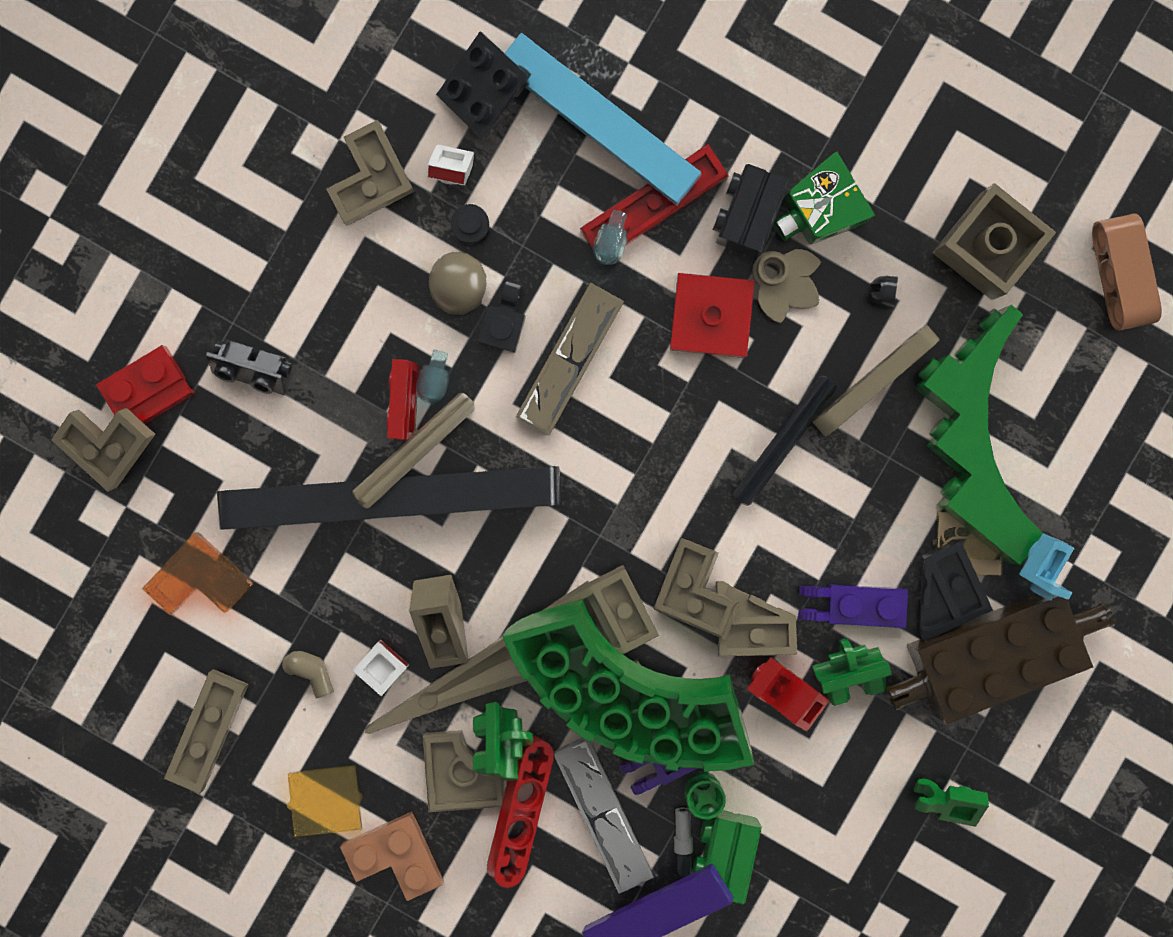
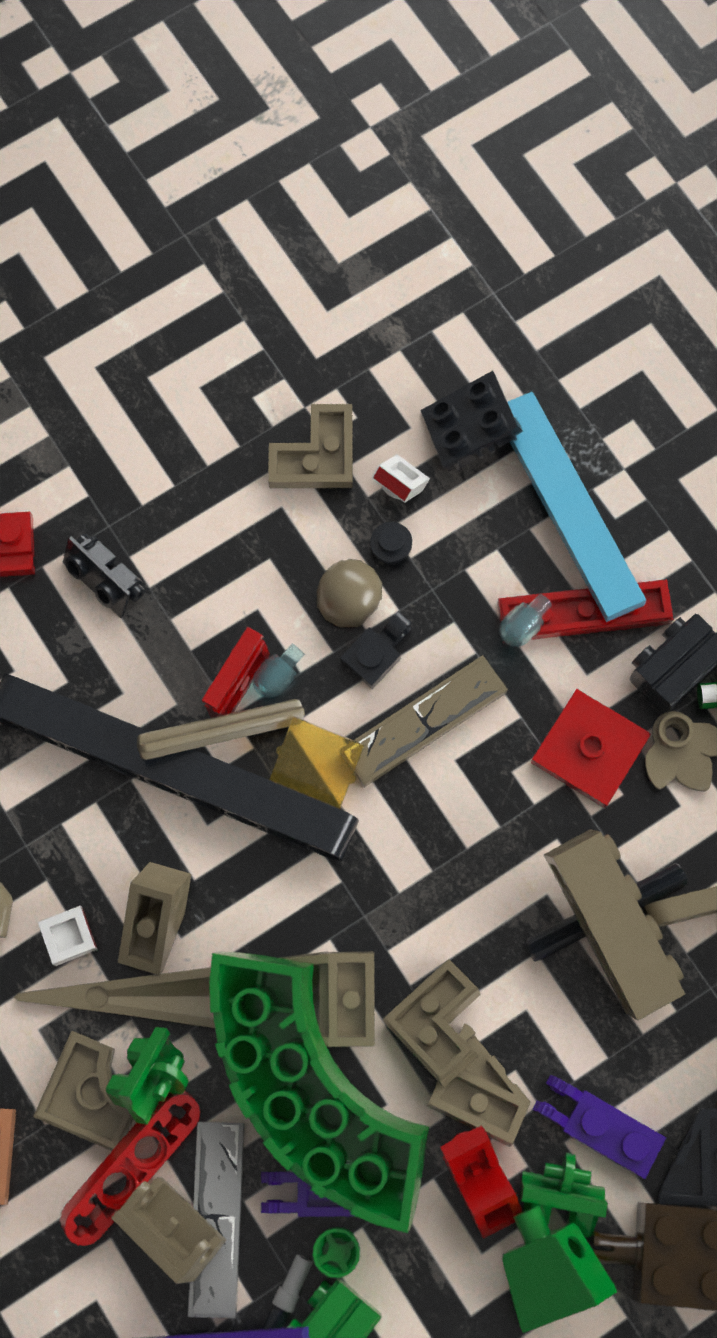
camera: 25 degrees right, 15 degrees down
(503, 437) = (317, 762): none -> clear yellow piece
(574, 844) = (169, 1230): none -> dark tan hinge
(798, 450) = (615, 924): none -> dark tan brick
(872, 733) = (553, 1272): none -> green torso

